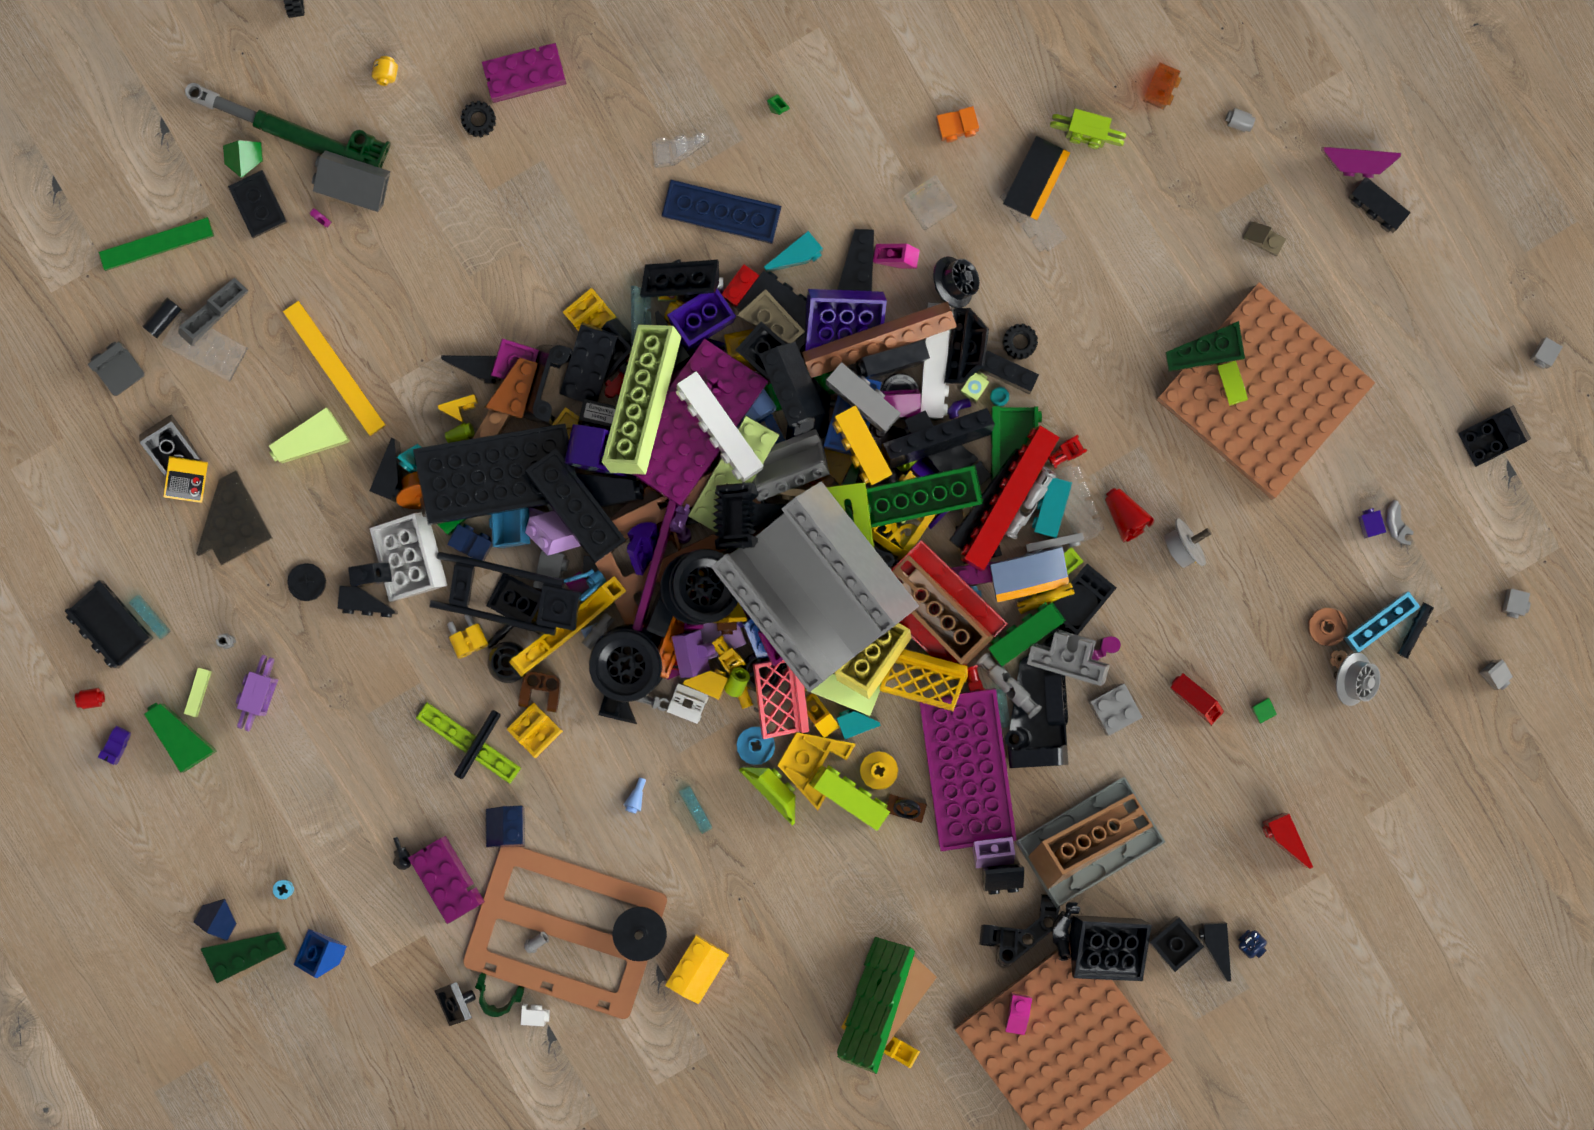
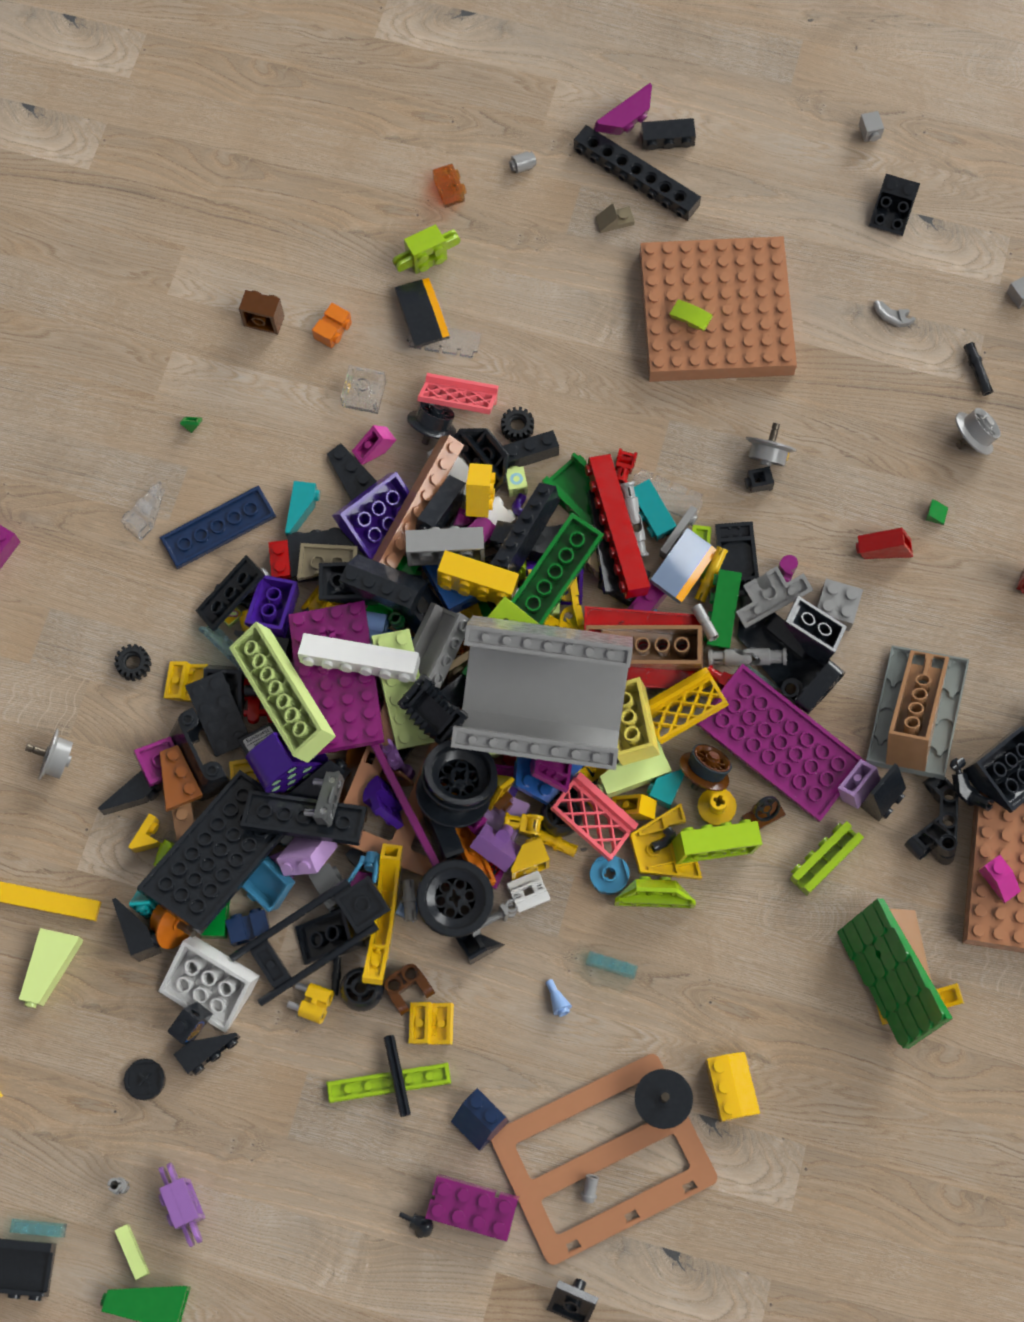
camera: 45 degrees left, 15 degrees down
(232, 522) = (42, 1088): clear smoke wing -> none
(444, 287) = (54, 757): none -> light grey piece
(491, 1010) = (607, 1279): dark green helmet -> none
(534, 1015) = (644, 1249): white brick -> none
(575, 263) = (126, 653): none -> black tyre
(604, 509) = (328, 798): none -> dark grey piece
(737, 682) = (551, 836): lime brick -> none
(777, 413) = (397, 621): none -> dark green pin
(815, 761) = (665, 841): none -> black arm
(895, 738) = (706, 768): none -> reddish brown piece
(905, 381) = (461, 519): none -> magenta tile
(912, 63) = (261, 312): none -> reddish brown brick
(918, 880) = (826, 858): none -> lime brick
(932, 376) = (480, 490): none -> yellow brick
(999, 396) = (539, 472): teal tile -> none
(1000, 634) = (703, 620): none -> light grey piece
(1003, 271) = (459, 392): none -> coral fence
(1072, 714) = (814, 630): none -> black slope
(1127, 515) = (709, 468): red cone -> none
(1163, 559) = (762, 475): none -> black brick
(1215, 348) = (653, 308): dark green wing -> none
(1312, 148) = (645, 173): none -> black brick
(1316, 625) = (915, 428): nougat plate -> none
(1334, 658) = (949, 437): light nougat plate -> none
(1371, 523) = (876, 326): dark purple brick -> none
(1381, 622) = (951, 381): medium azure brick -> none

